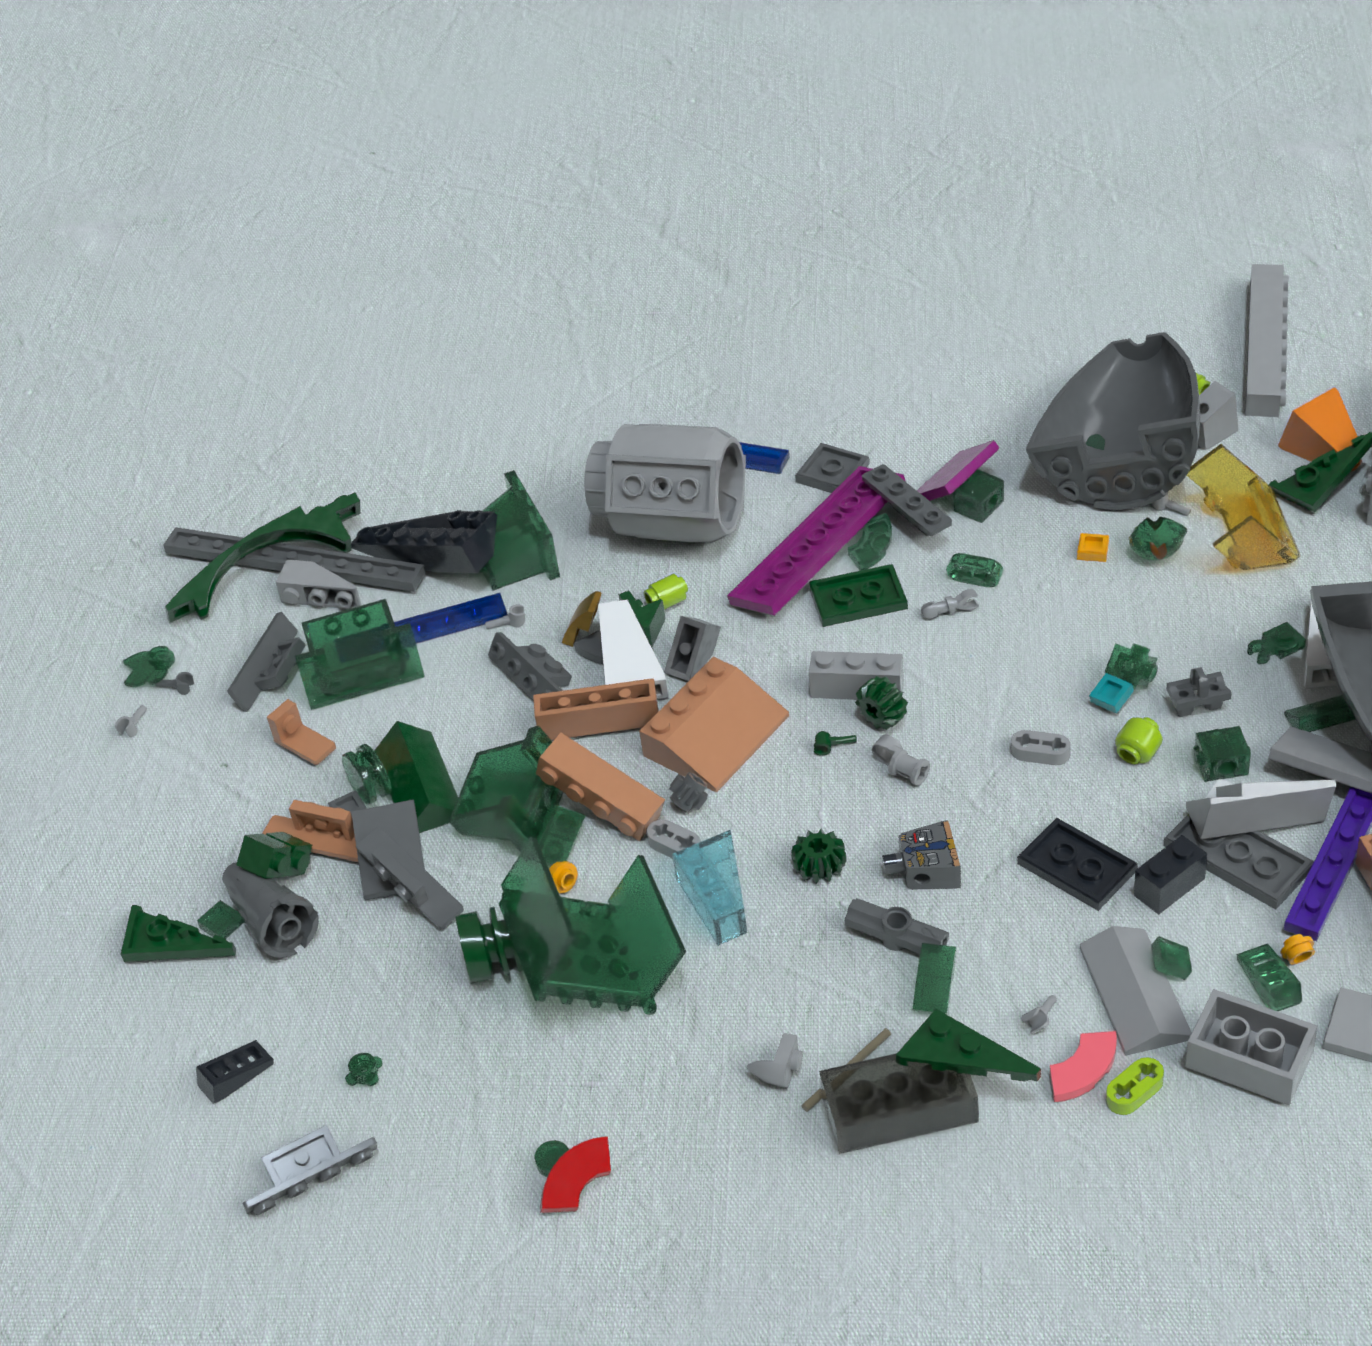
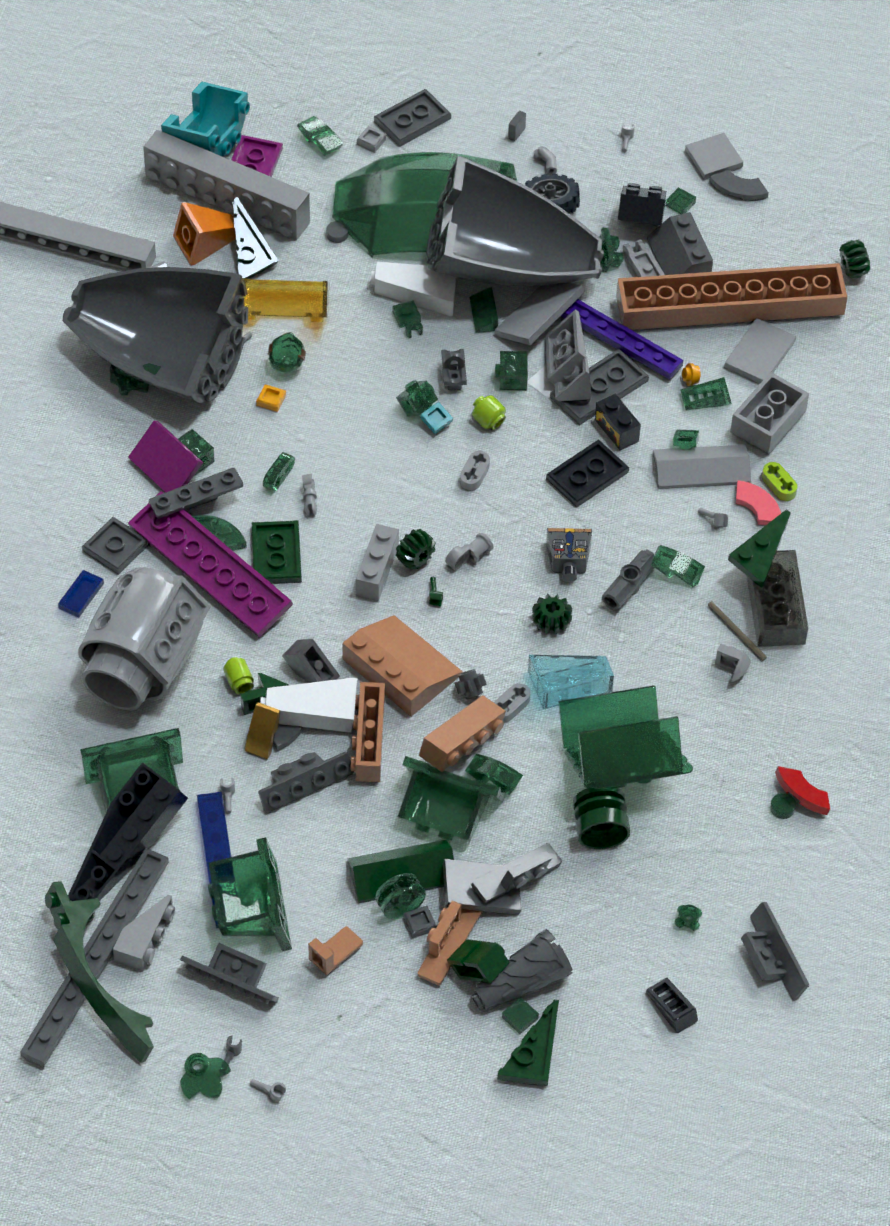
camera: 90 degrees left, 10 degrees up
(564, 875) = (533, 775): light orange plate -> none

